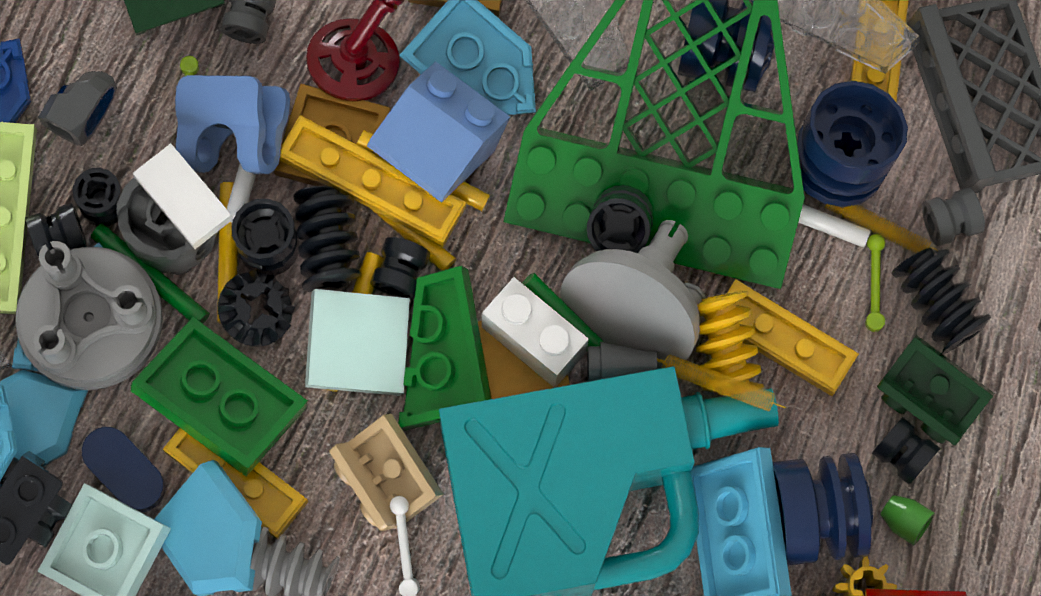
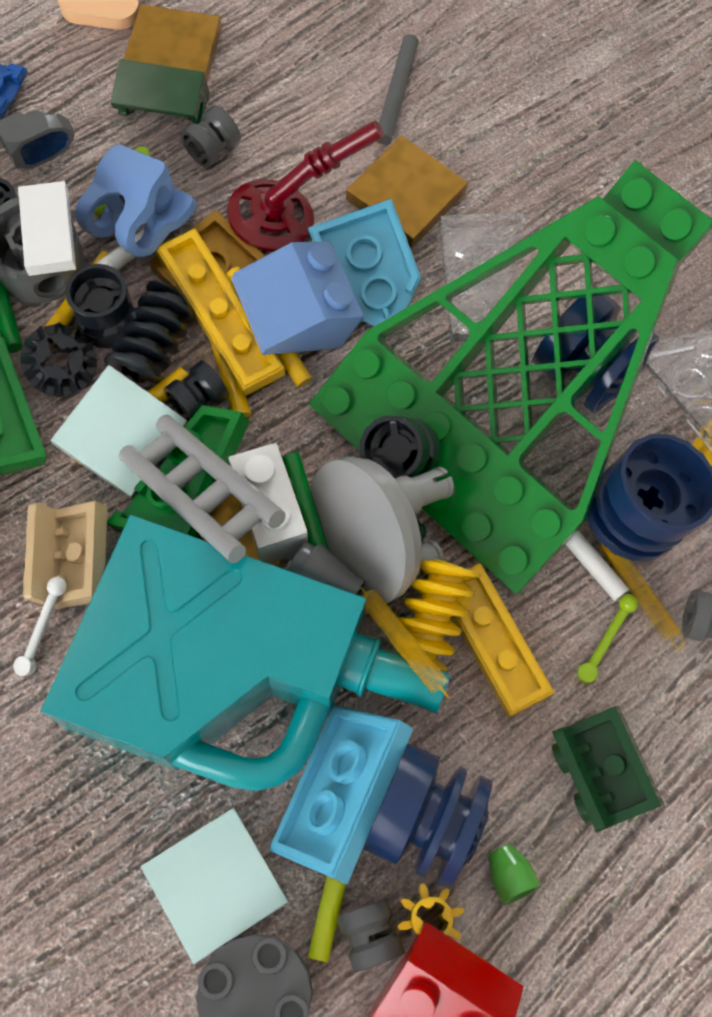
camera: 30 degrees right, 5 degrees down
(489, 372) = (197, 511): none -> light grey bar
(915, 457) = (550, 821): black wheel -> none
(941, 297) = (661, 685): black piece -> none

